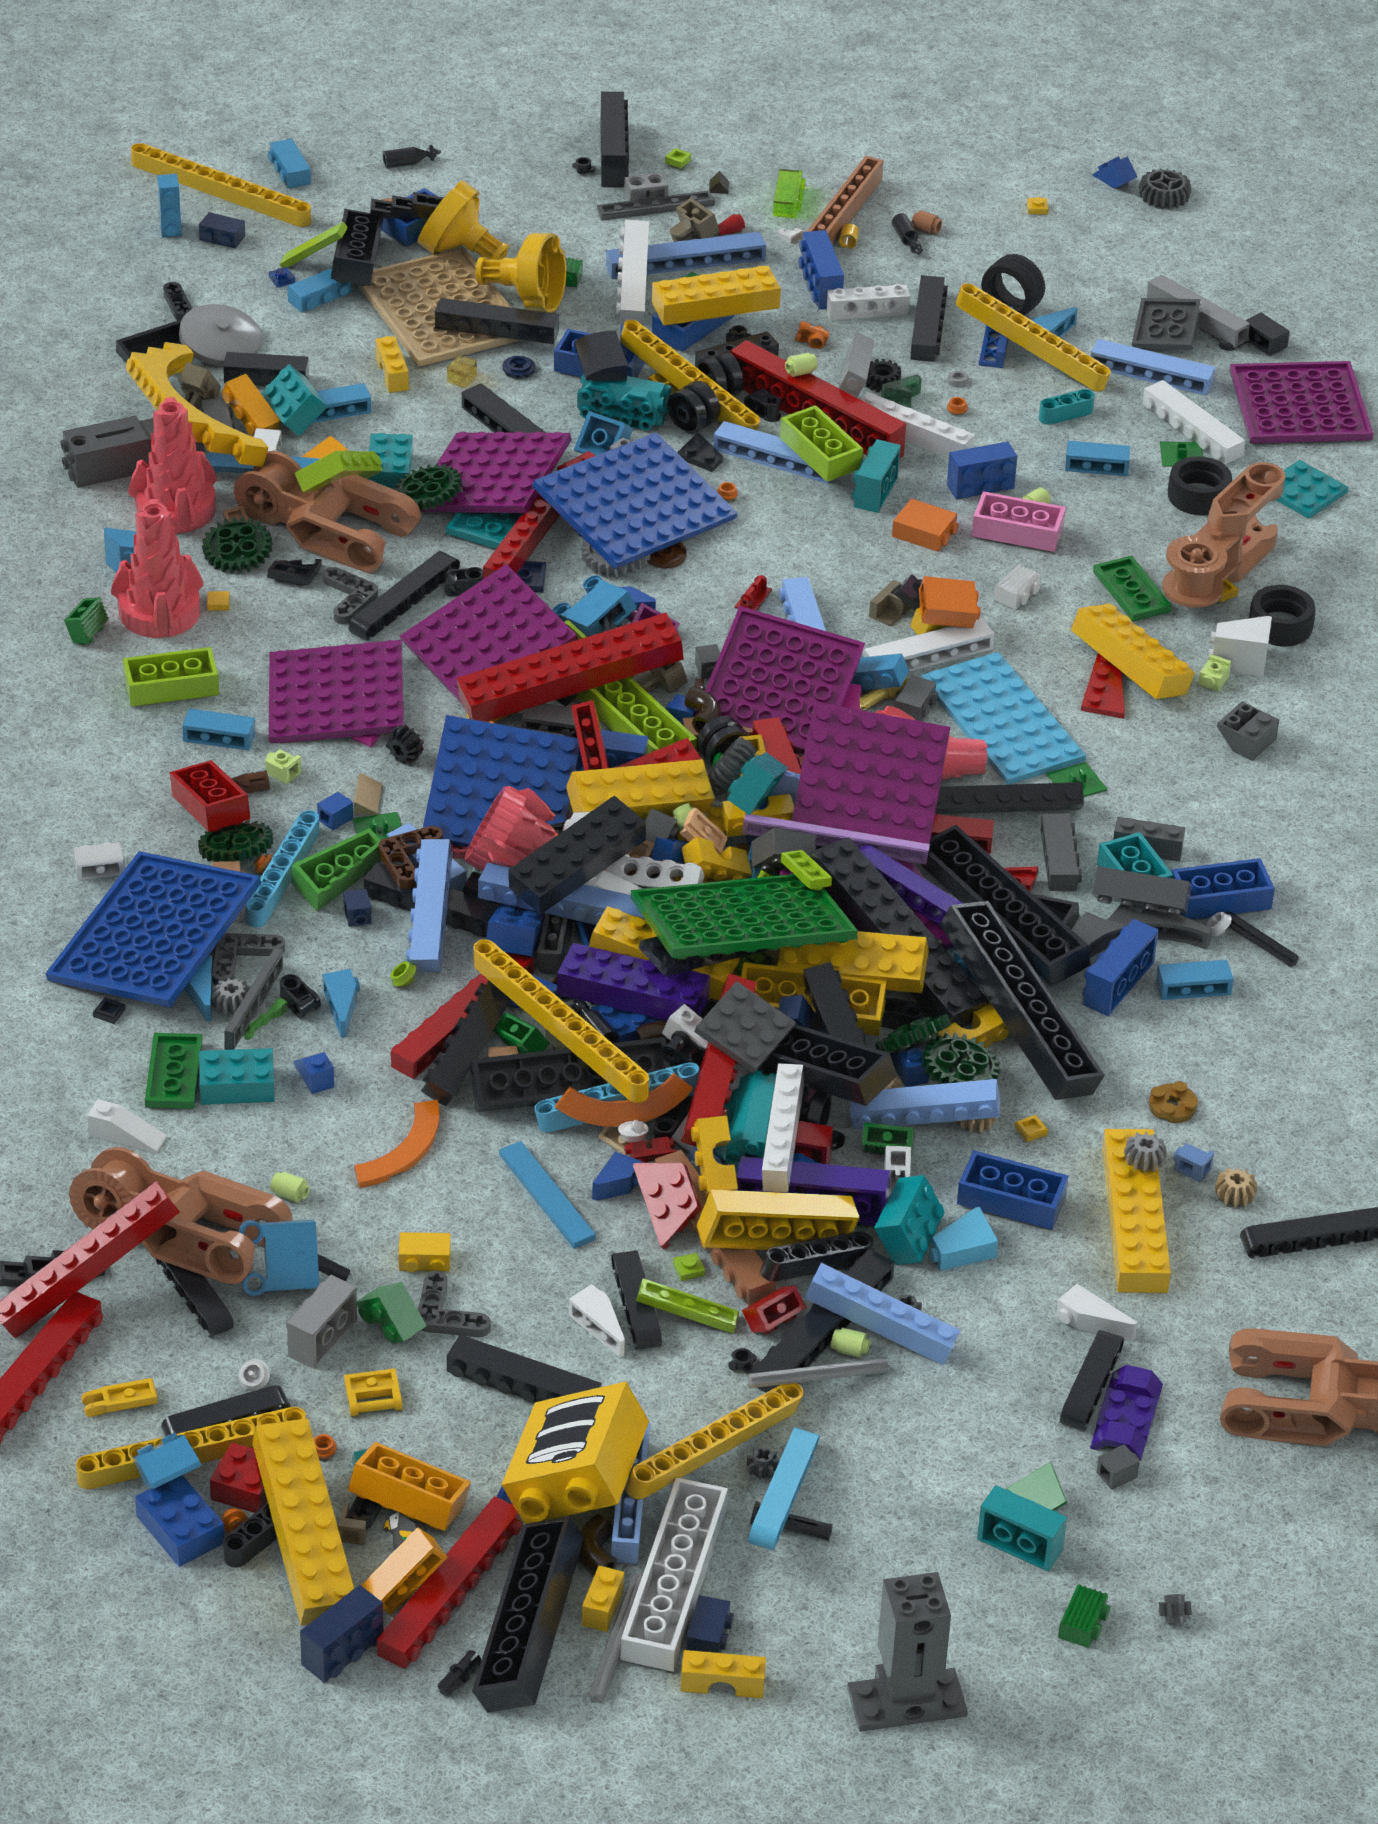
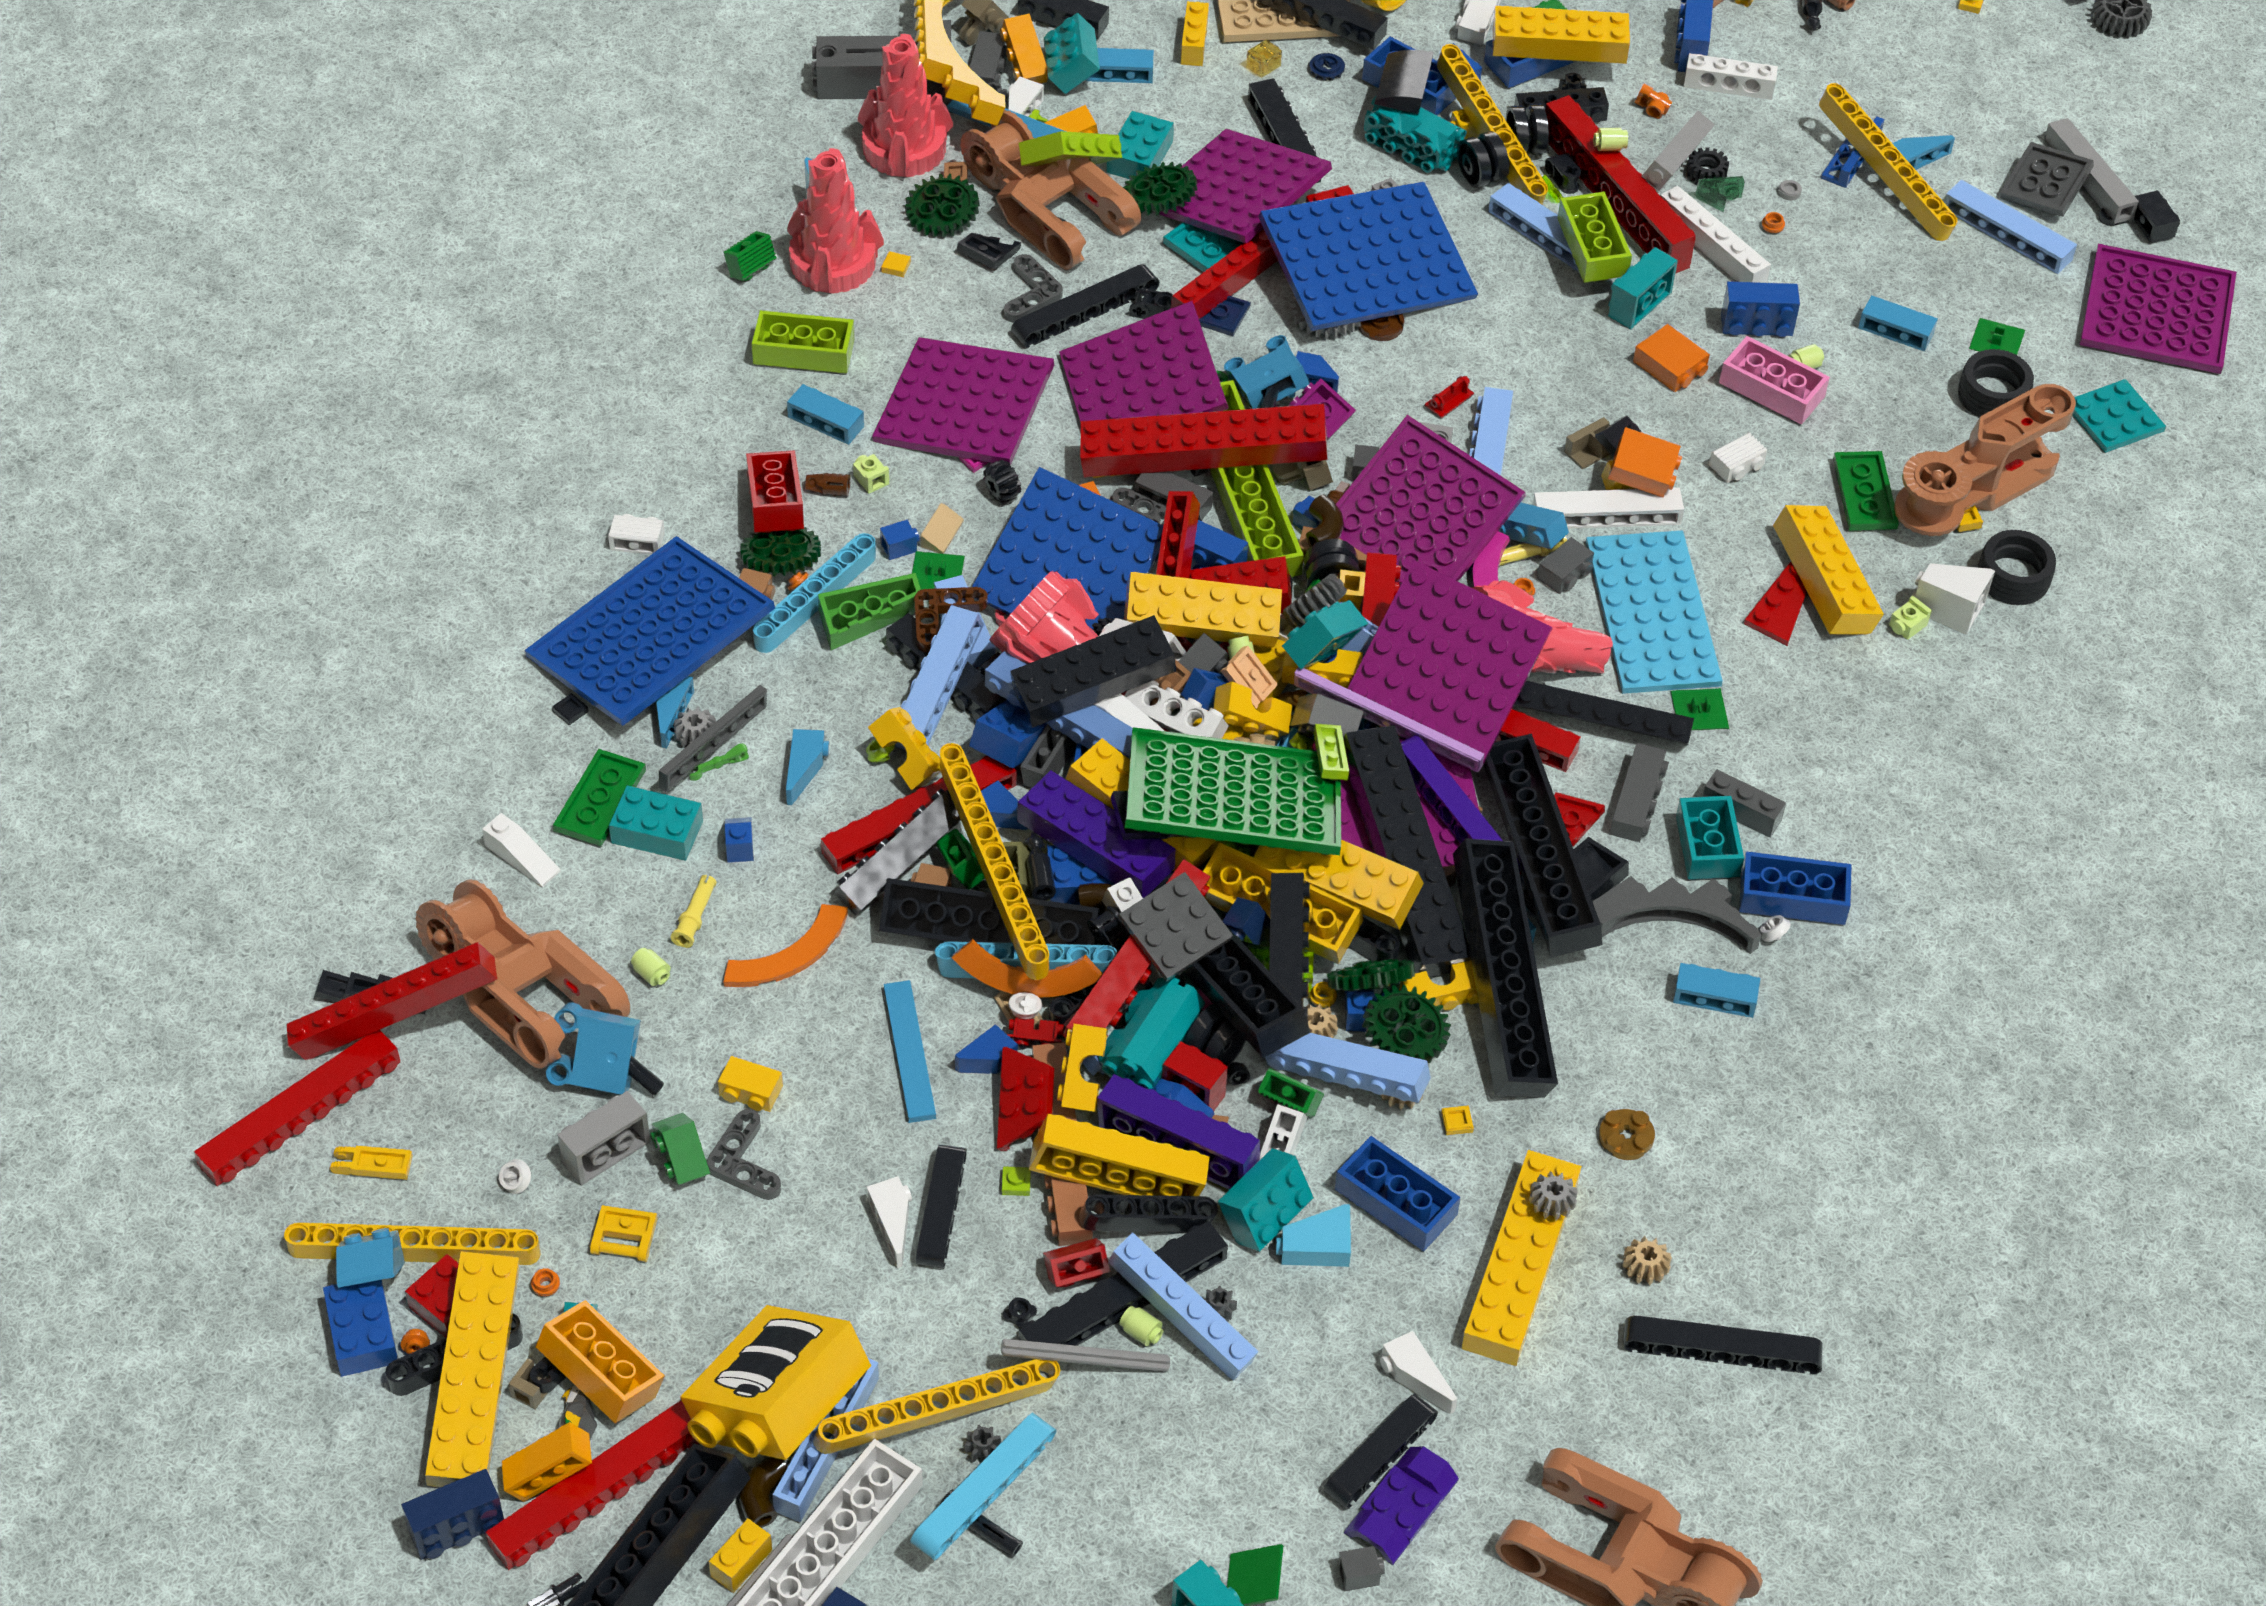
camera: 20 degrees right, 10 degrees up
(200, 1298) = (502, 1076): black beam -> none
(230, 1409) = (468, 1213): black beam -> none
(237, 947) = (729, 672): dark grey beam -> none
(298, 995) = (761, 745): black piece -> none
(305, 1143) = (690, 920): none -> light yellow pin
(357, 907) = (868, 659): dark blue brick -> none
(449, 973) = (921, 762): none -> yellow arch
(512, 1372) = (780, 1261): black brick -> none
(600, 433) = (1372, 166): dark azure slope -> none
(687, 1305) = (988, 1230): lime tile -> none
(701, 453) = (1471, 213): black wing -> none
(727, 491) = (1478, 265): orange plate -> none
(764, 422) = (1553, 190): none -> clear neon green tile
(782, 1128) = (1166, 1056): white brick -> none
(929, 318) = (1788, 110): black brick -> none
(1024, 272) = (1906, 87): black tyre -> none
(1066, 406) = (1891, 252): teal beam -> none
(1120, 967) = (1637, 954): blue brick -> none
(1142, 890) = (1697, 869): dark grey brick -> none
(1193, 1162) = (1613, 1215): medium blue brick -> none
(1194, 422) = (2025, 305): white brick -> none
(1248, 730) = (1915, 699): dark grey slope -> none
(1263, 940) = (1816, 960): black axle -> none

